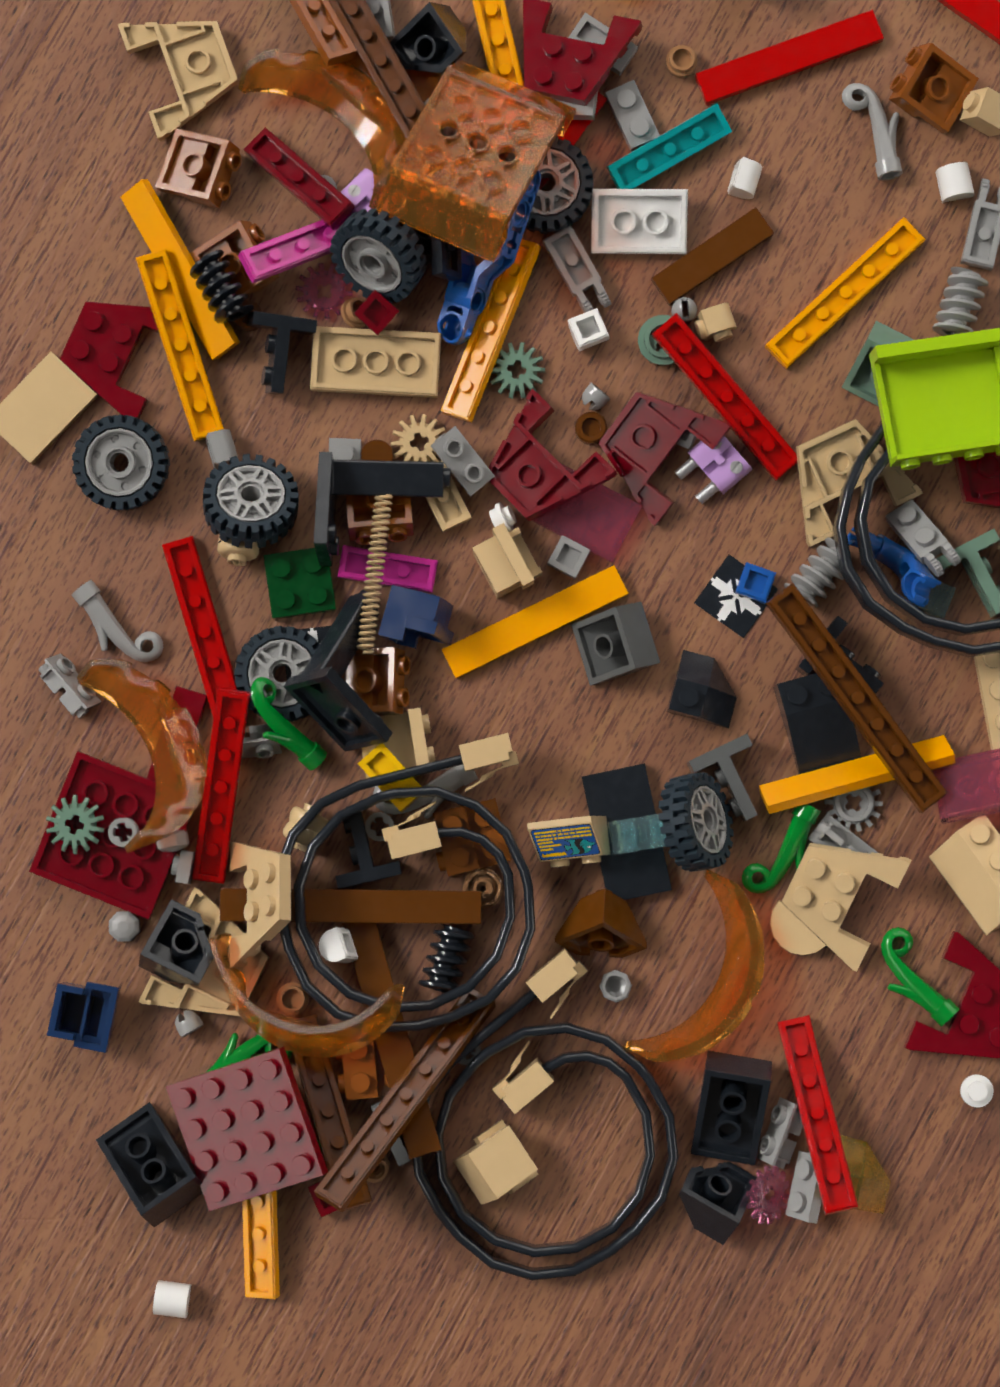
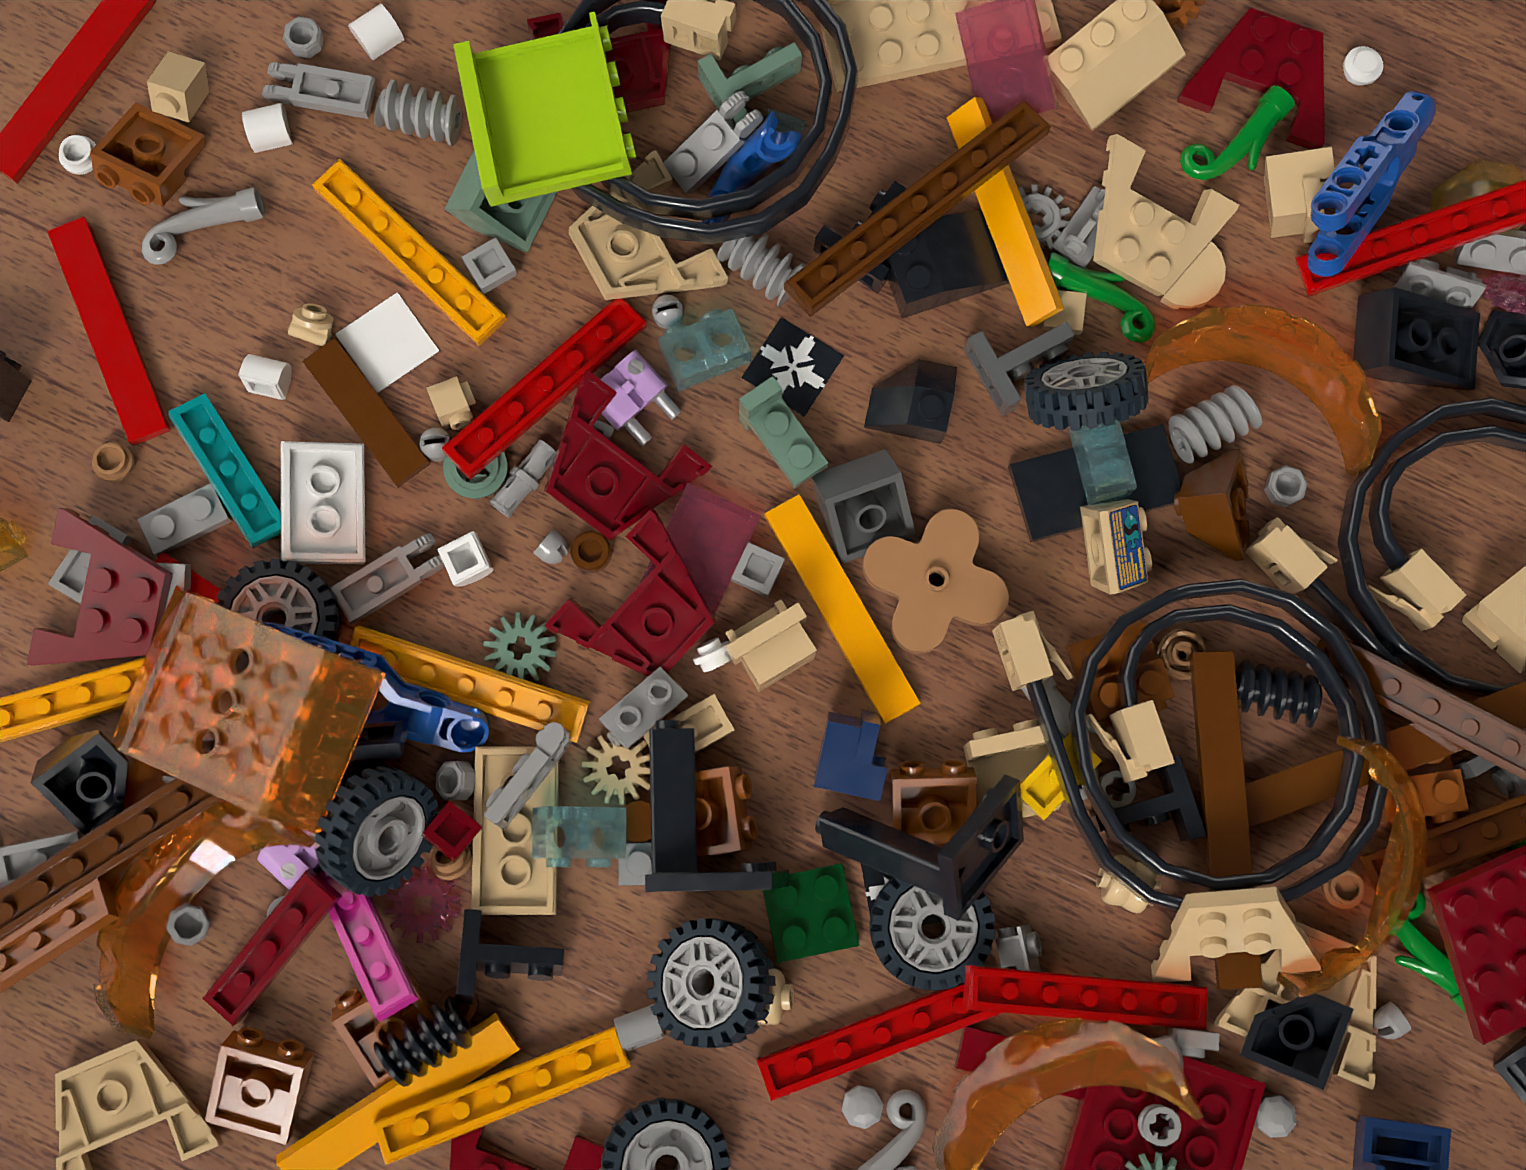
camera: 100 degrees left, 5 degrees down
(153, 613) = (862, 1106): none -> light grey tile
(286, 734) = (1030, 886): green plant -> none
(320, 116) = (187, 924): none -> light grey tile
(338, 946) = (1281, 830): white brick -> none
(370, 606) = (795, 806): tan piece -> none
(374, 408) = (579, 828): none -> clear light blue brick
(399, 569) = (785, 799): dark pink tile -> none
(415, 371) = (529, 774): none -> light grey hinge
(416, 317) = (455, 780): none -> light grey tile
(539, 717) = (926, 610): none -> medium nougat plant
(651, 377) = (524, 478): none -> light grey pin
(669, 929) = (1211, 420): none -> light grey piece
(674, 579) = (780, 432): none -> sand green bracket
(742, 525) = (709, 358): none -> clear light blue brick
(755, 583) = (776, 342): blue tile -> none
(770, 274) = (387, 342): none -> white sticker
(770, 824) = (1073, 313): none -> tan tile
(779, 498) = (669, 317): none -> light grey hinge
(786, 215) = (311, 324): none -> tan plate
(829, 356) = (489, 265): none -> light grey plate
(860, 1015) = (1291, 185): none -> tan plate
(883, 1089) = (1384, 160): none -> blue piece
(937, 32) = (75, 154): none -> white plate

